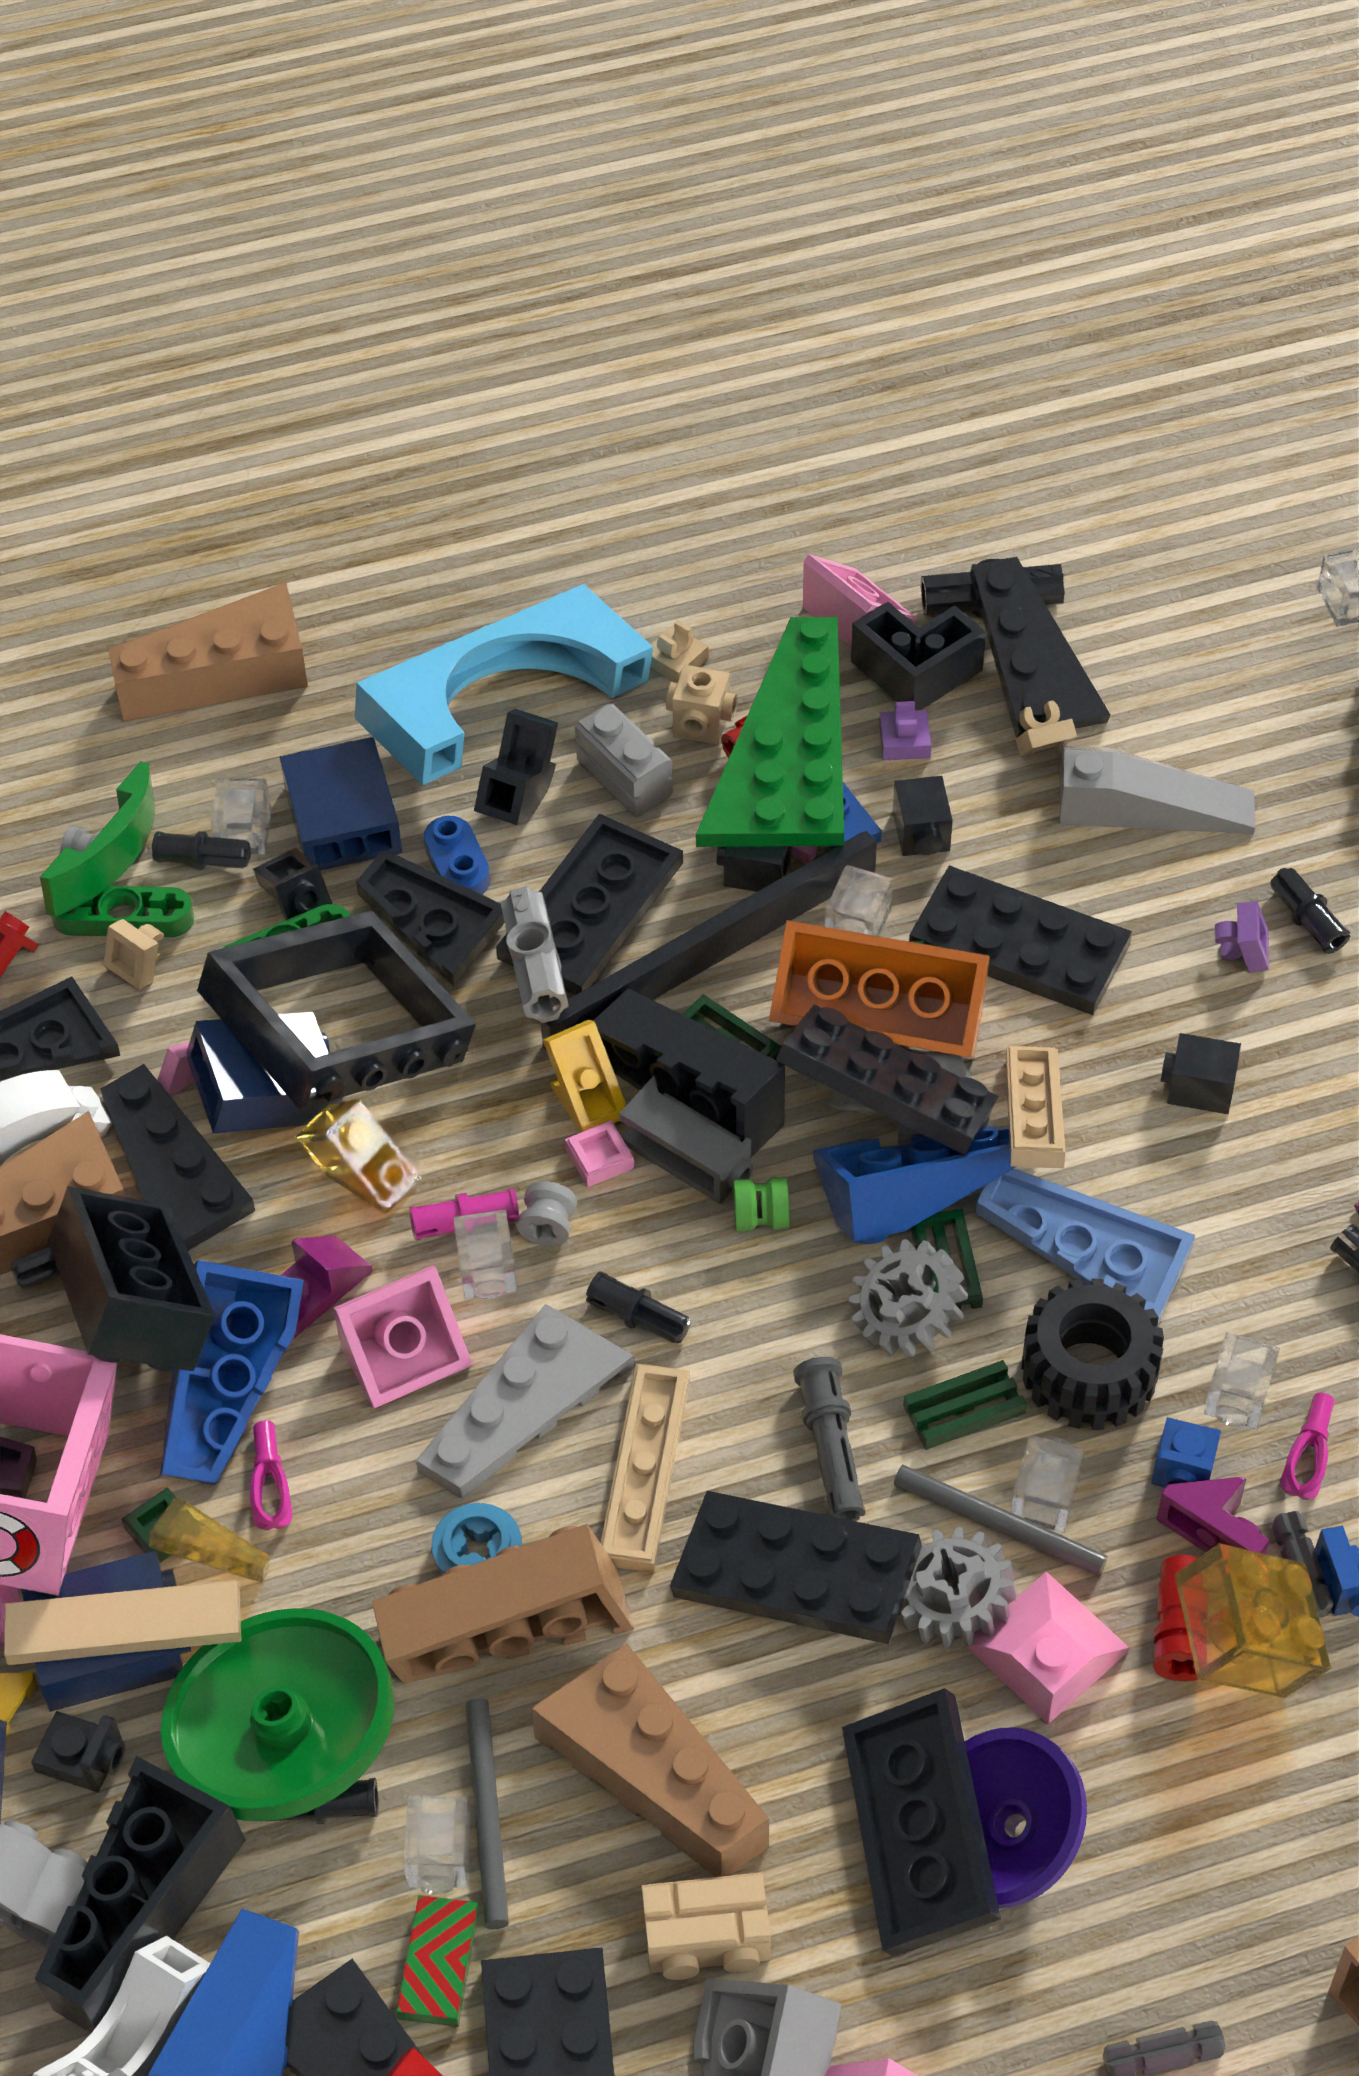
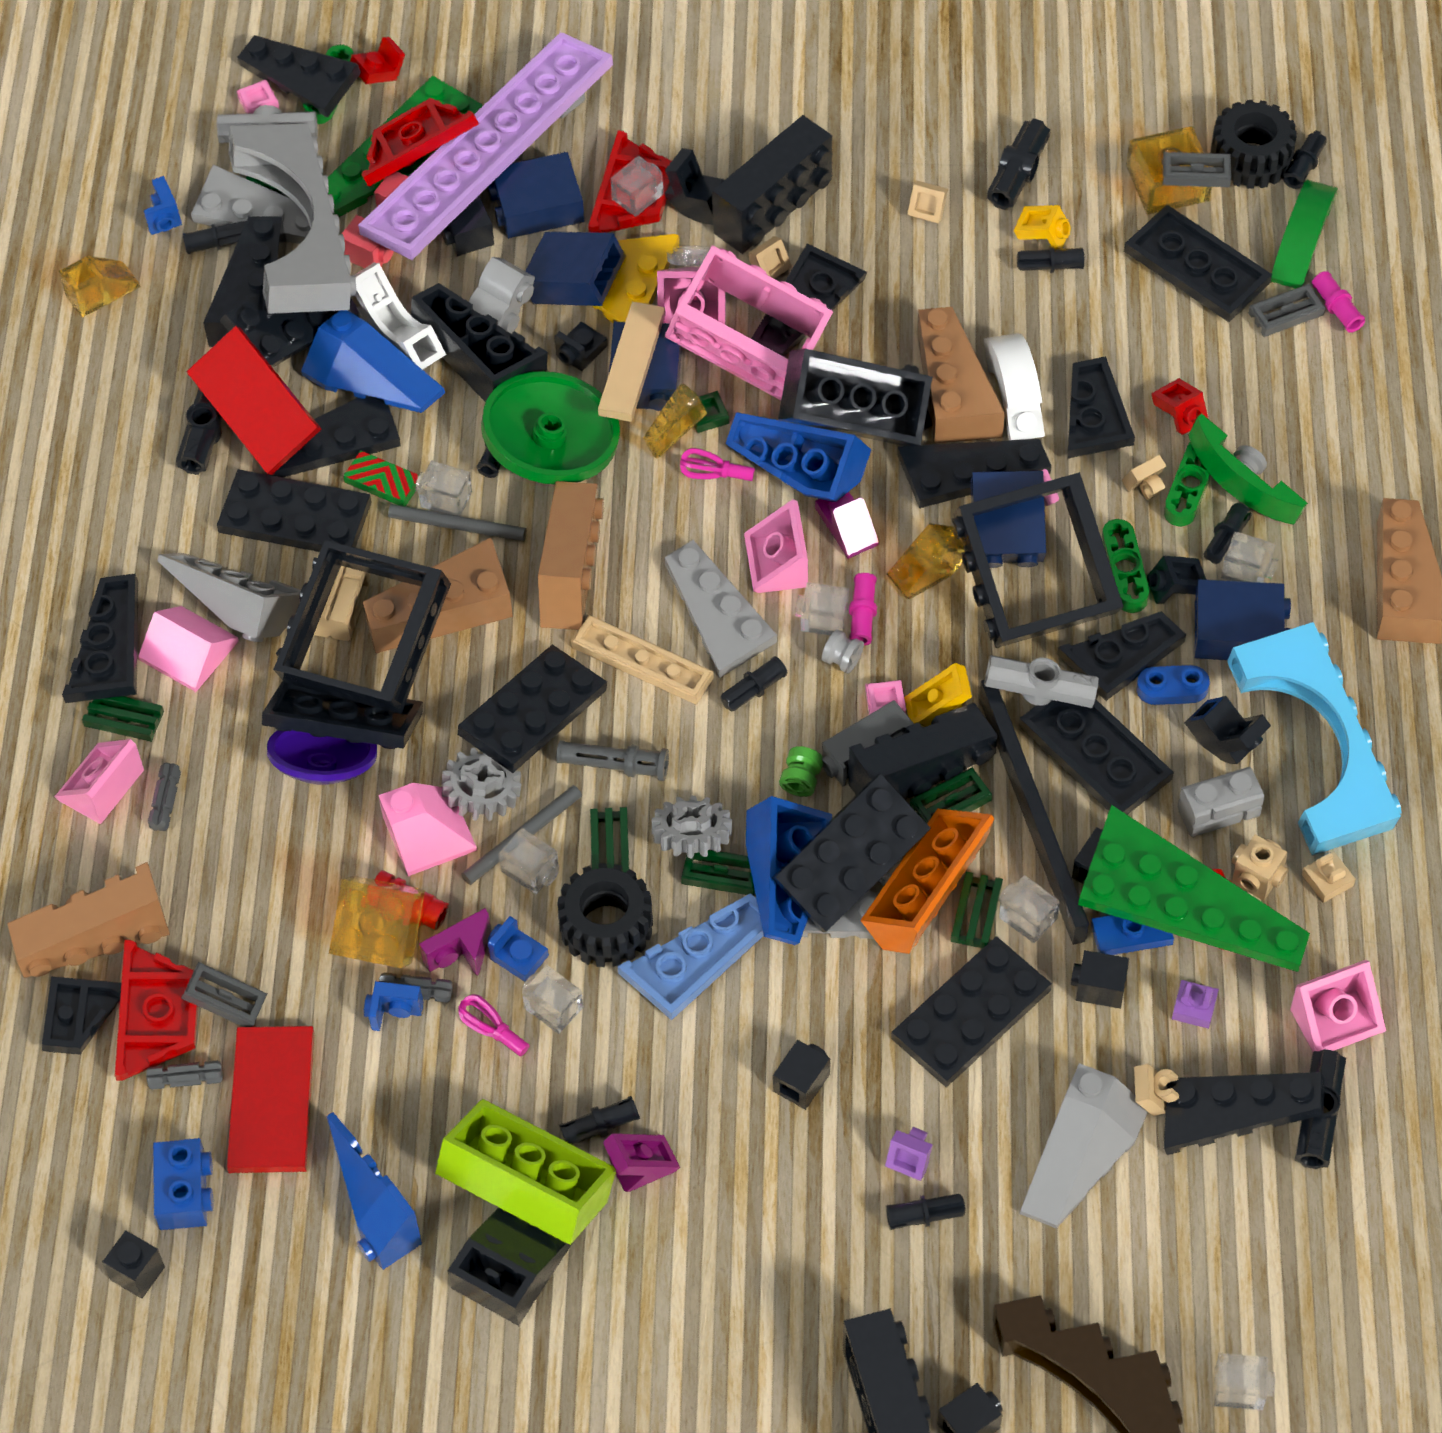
camera: 110 degrees right, 5 degrees up
(479, 1522) = (633, 547): dark azure gear -> none
(795, 1723) = (413, 640): none -> black window
(916, 660) = (1252, 1019): black brick -> none
(1034, 1107) = (803, 943): tan tile -> none

